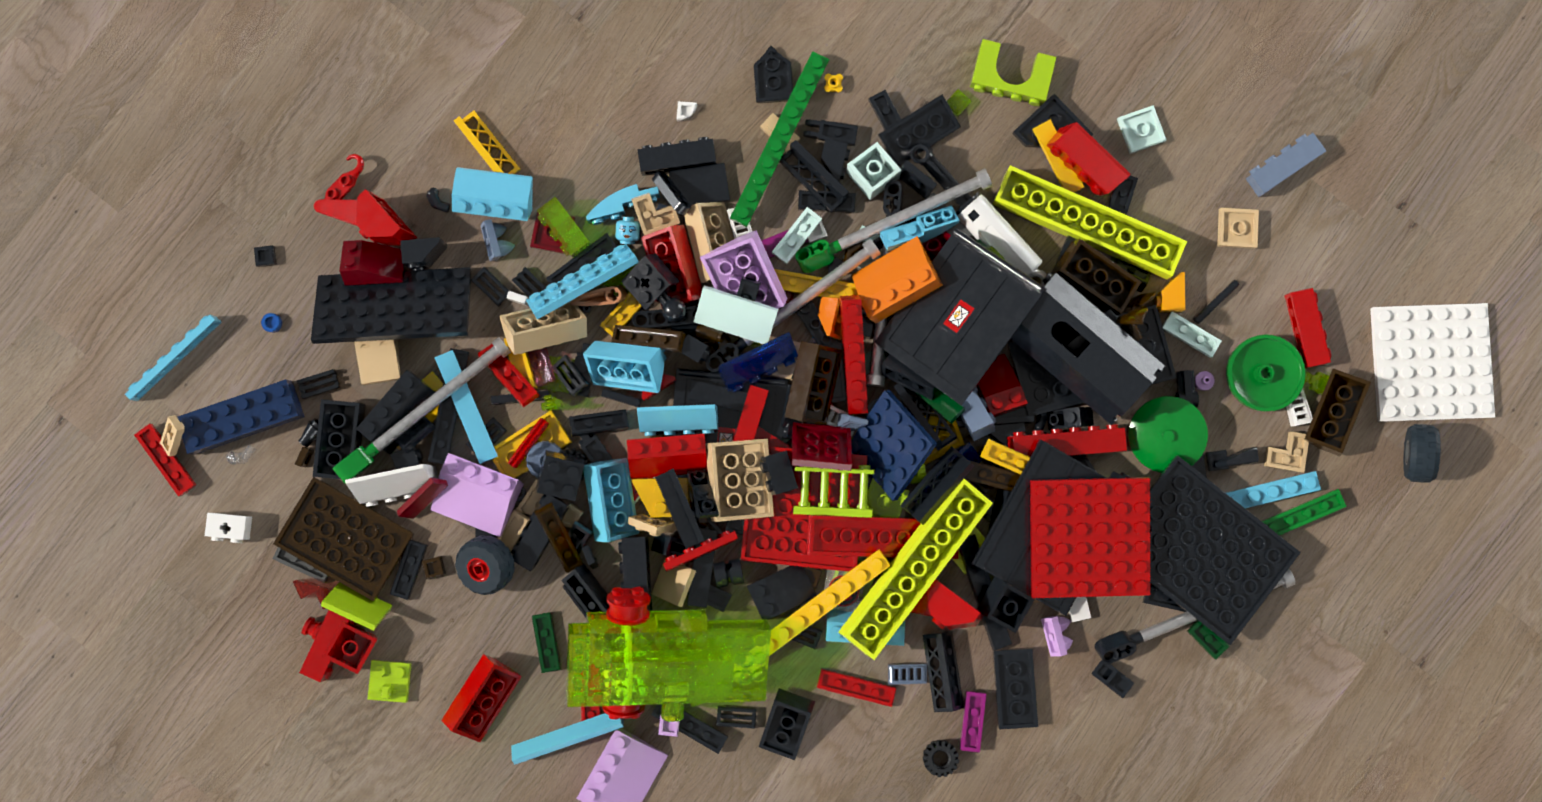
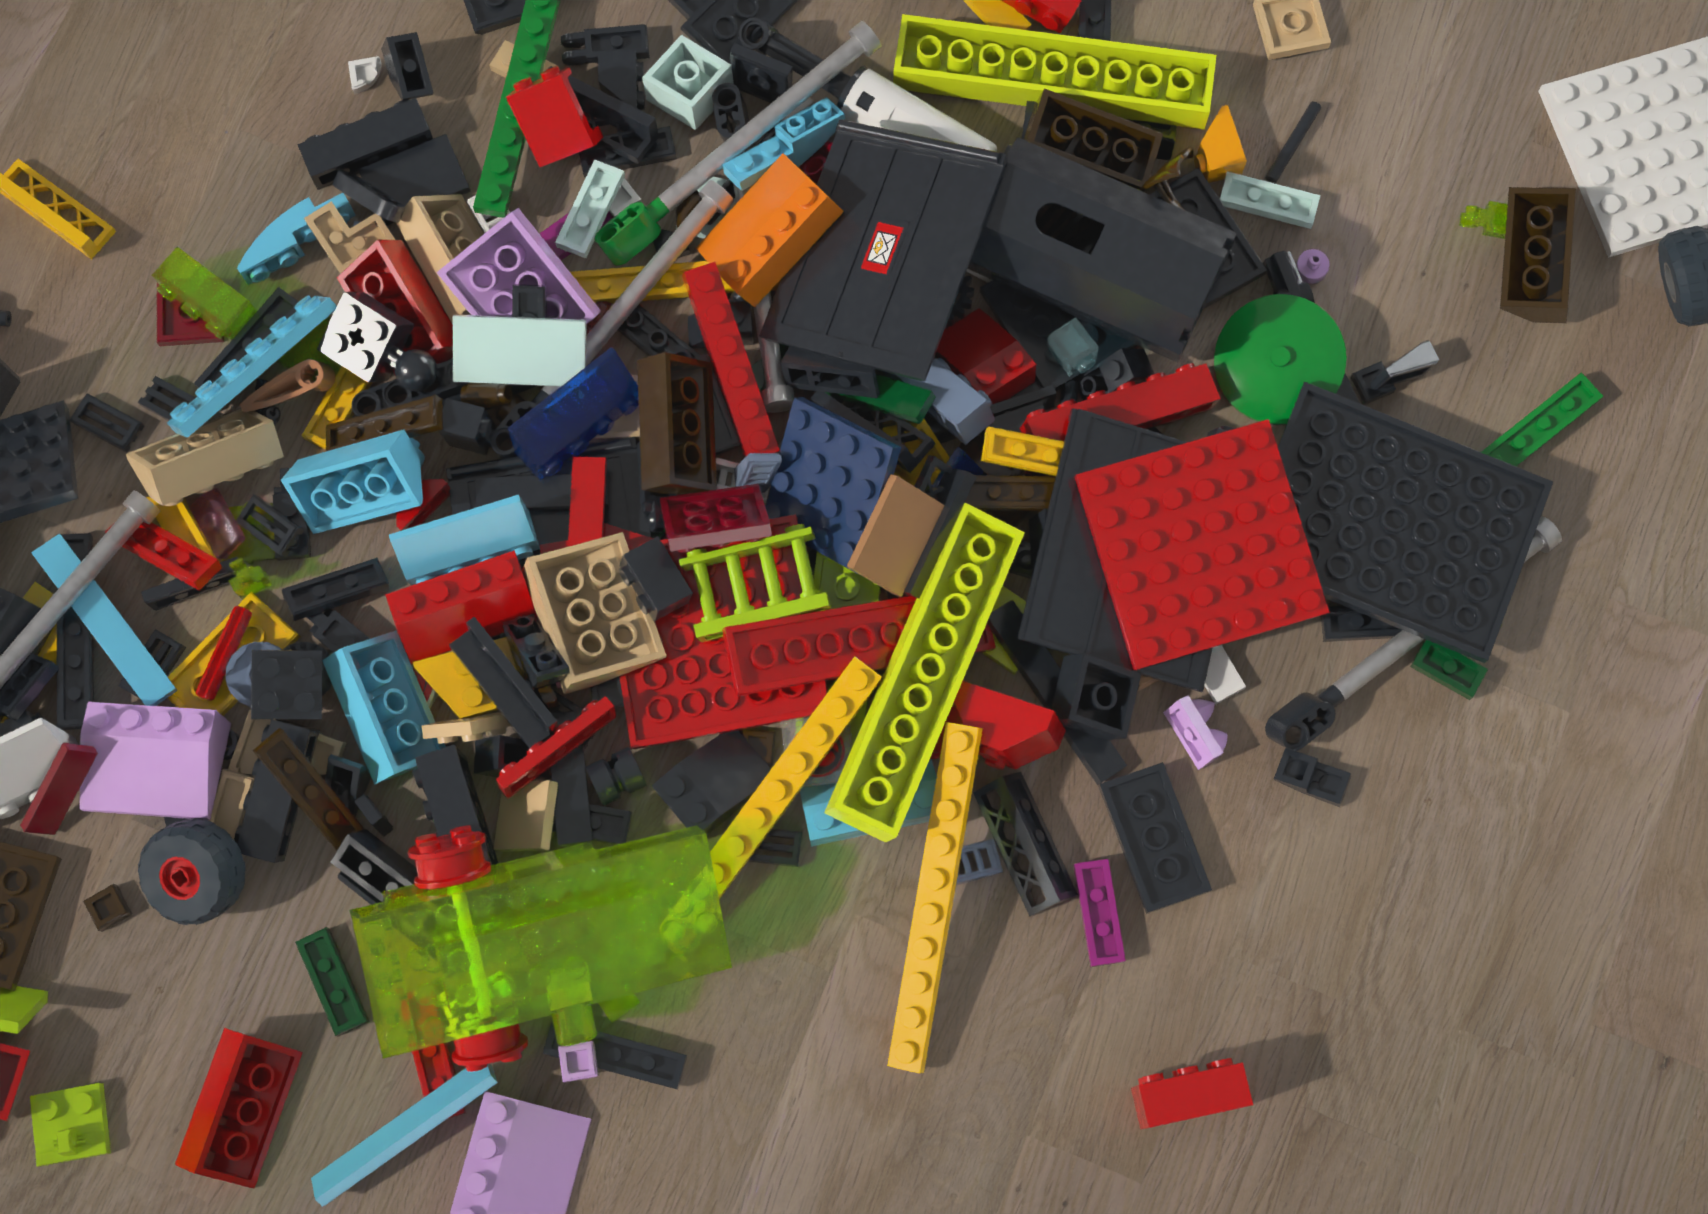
camera: 15 degrees left, 10 degrees down
(408, 569) = (64, 922): black tile -> none
(492, 194) = (74, 272): medium azure slope -> none
(495, 247) = (86, 339): sand blue tile -> none
(518, 298) = (152, 427): white tile -> none
(621, 398) = (361, 540): black tile -> none
(627, 230) = (312, 274): medium azure head -> none
(712, 118) = (407, 66): none -> black slope
(732, 716) = (721, 1013): black tile -> none
(786, 724) = (782, 1005): black slope -> none
(789, 175) = (552, 116): none -> red panel
(830, 317) = (678, 318): orange slope -> none
(856, 687) = (868, 912): red tile -> none
(886, 691) = (934, 897): none -> yellow plate
(920, 489) = (895, 535): none -> medium nougat tile
(952, 758) = (1081, 980): black tyre -> none
(1051, 397) = (1073, 347): none -> clear light blue brick
(1265, 373) = (1405, 224): green dish -> none
(1276, 490) = (1487, 400): medium azure plate -> none
(1290, 459) = (1490, 347): tan plate -> none
(1305, 411) = (1488, 267): white slope -> none
(1307, 327) = (1450, 142): red brick -> none

